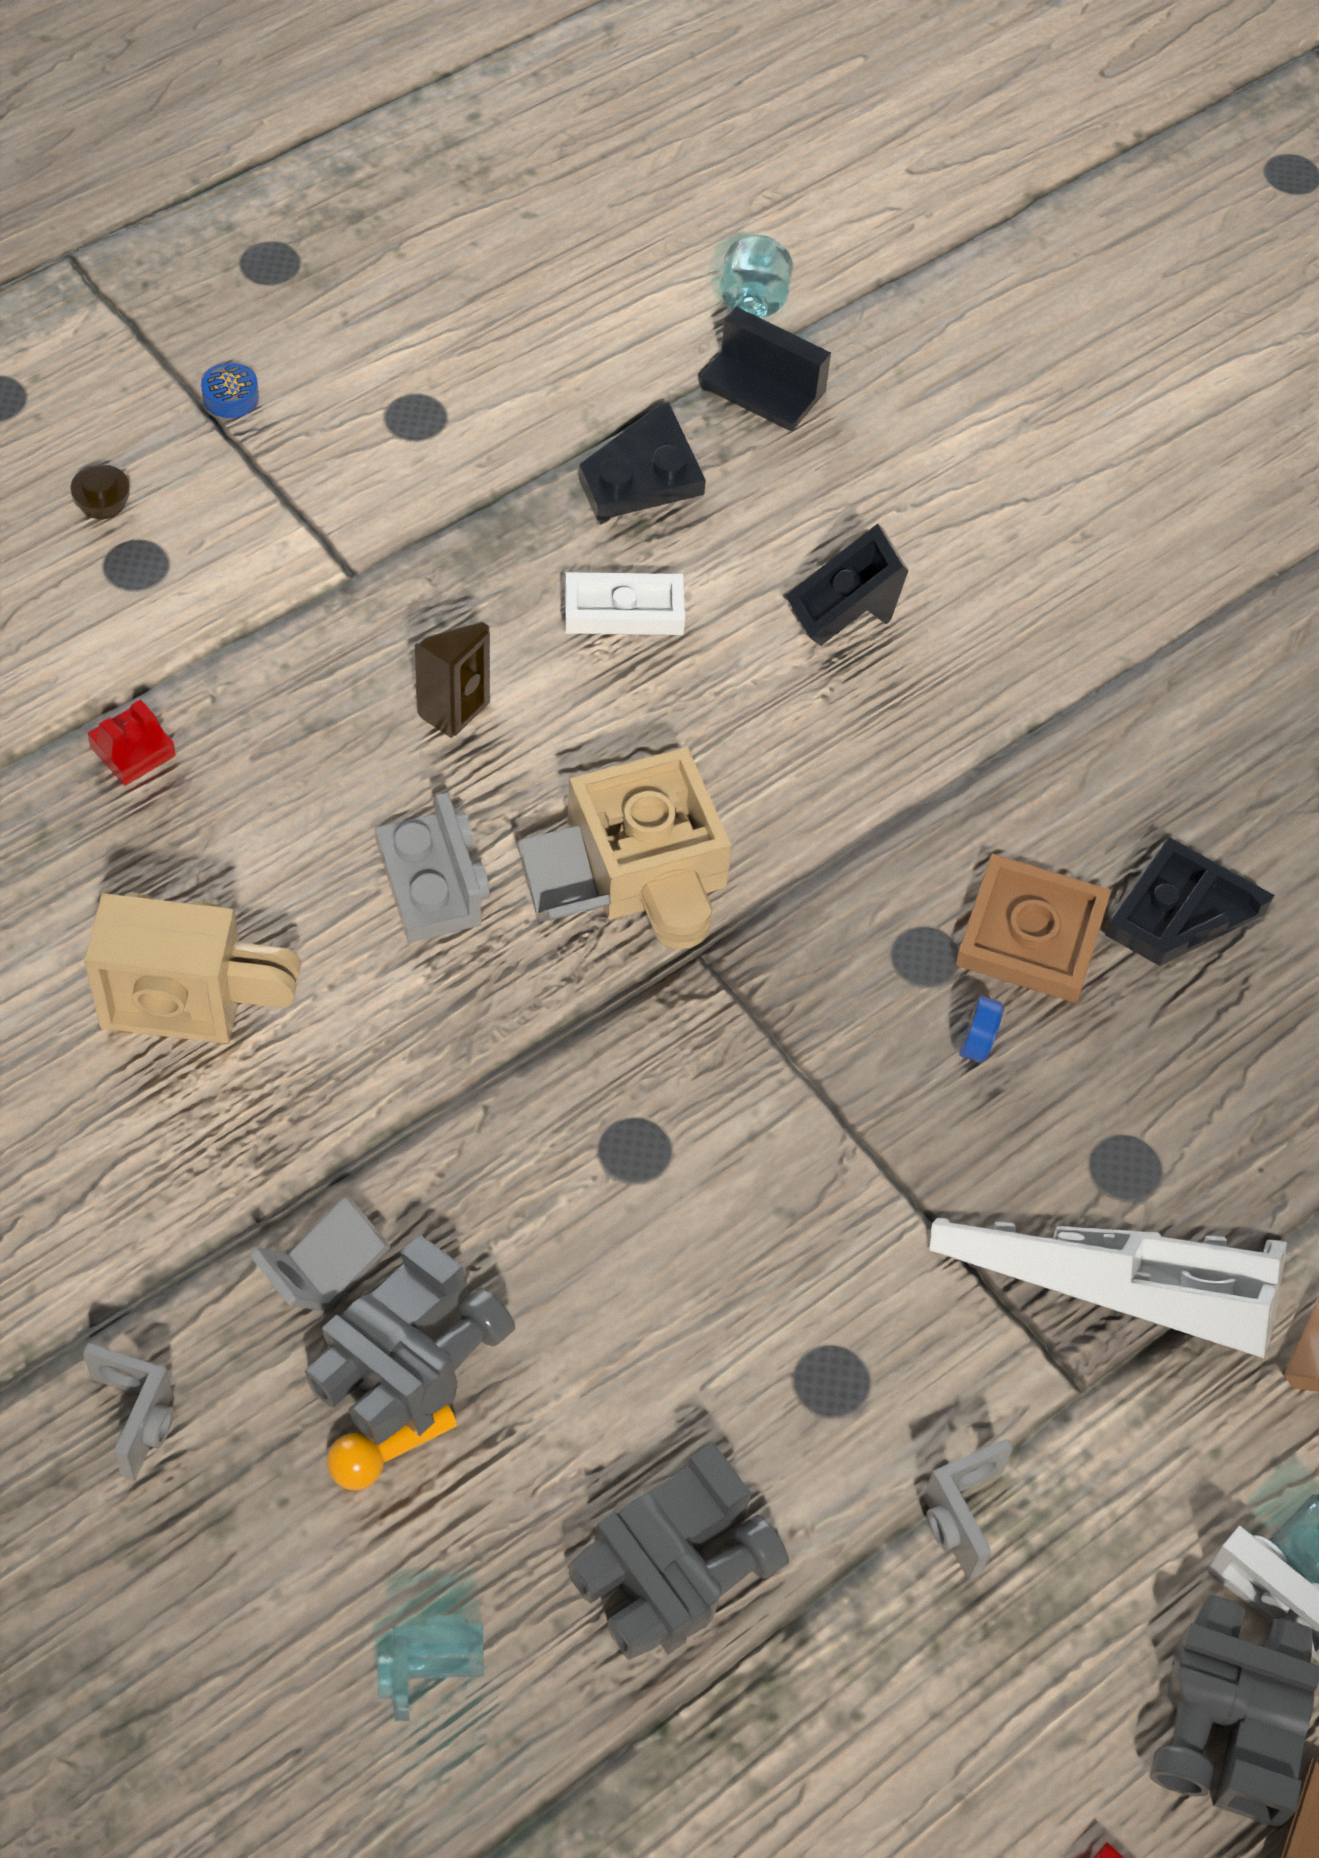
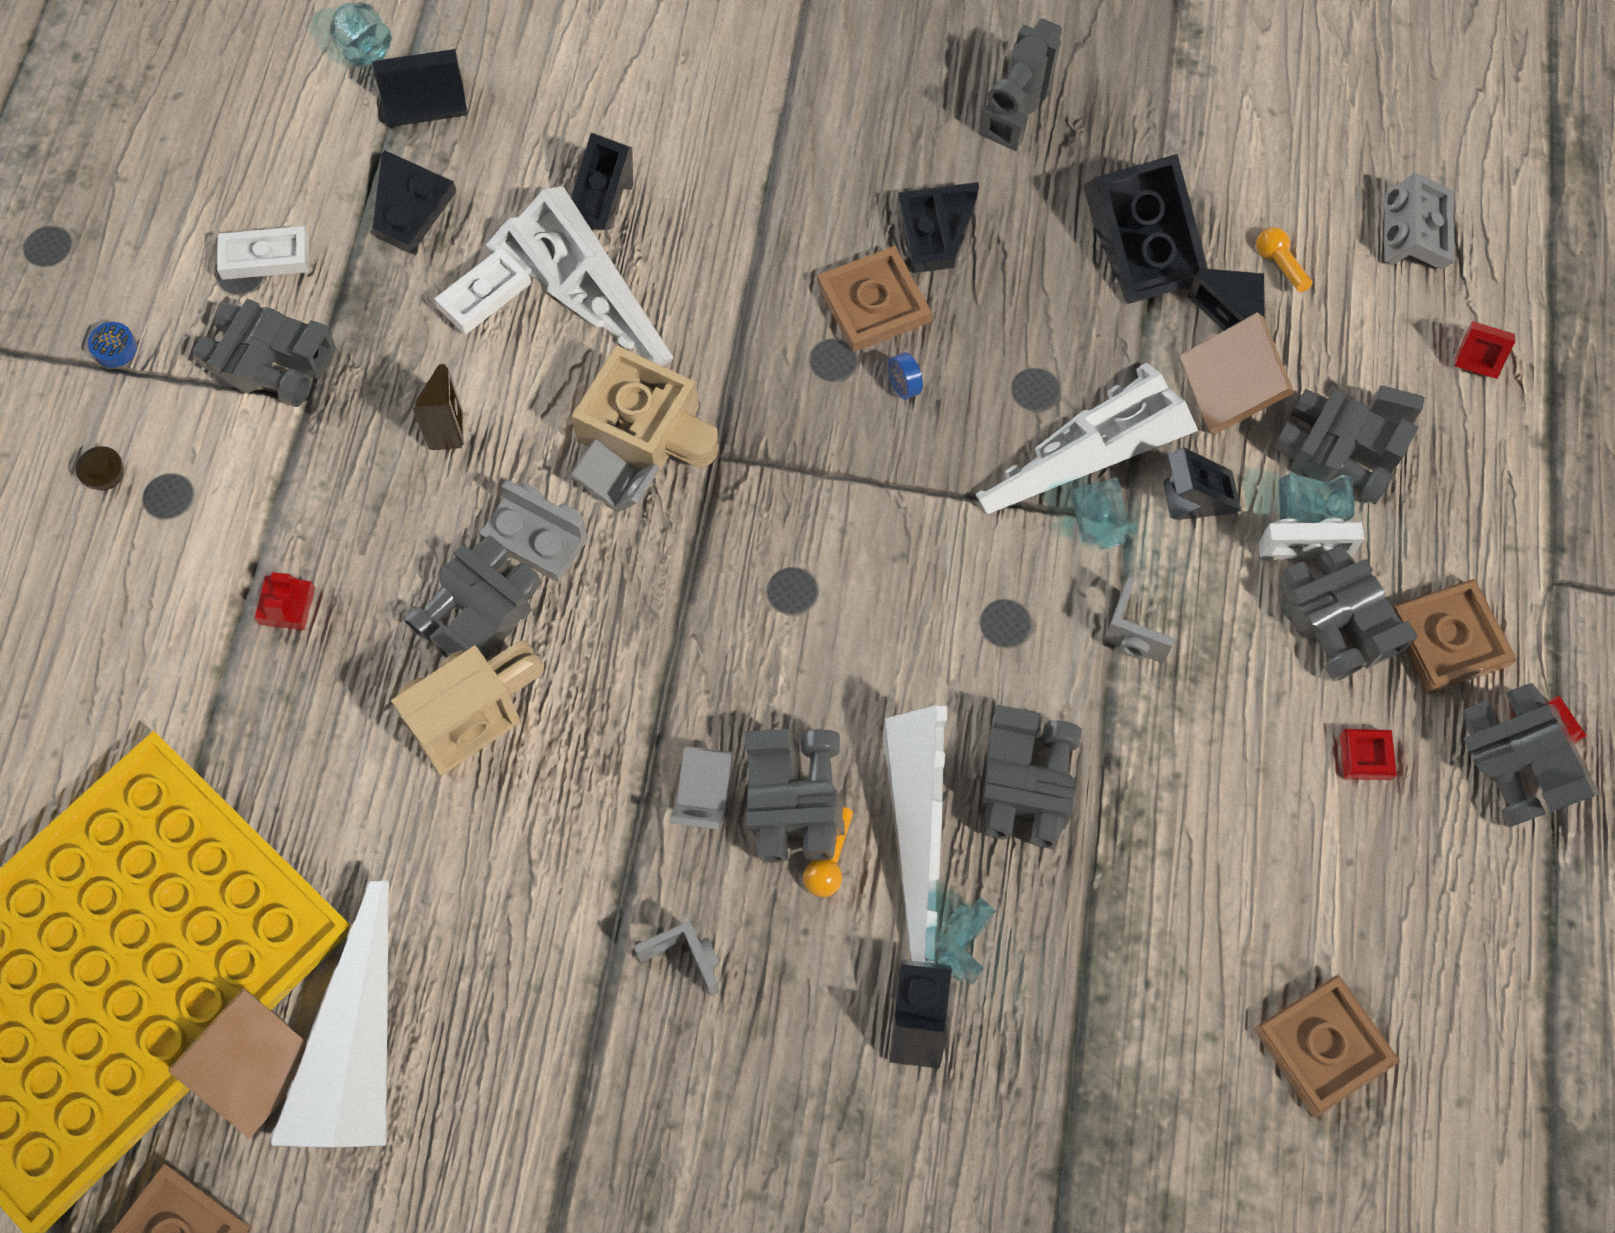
camera: 40 degrees left, 10 degrees up
(292, 1694) = (920, 1014): none -> black slope
(314, 896) = (487, 601): none -> dark grey hips
(355, 482) = (257, 339): none -> dark grey hips
(452, 410) = (263, 252): none -> white plate
(561, 1426) = (915, 781): none -> white wedge
(743, 637) = (566, 257): none -> white wedge
(1056, 1353) = (1102, 513): none -> clear light blue bracket
(1206, 1422) = (1199, 487): none -> black slope

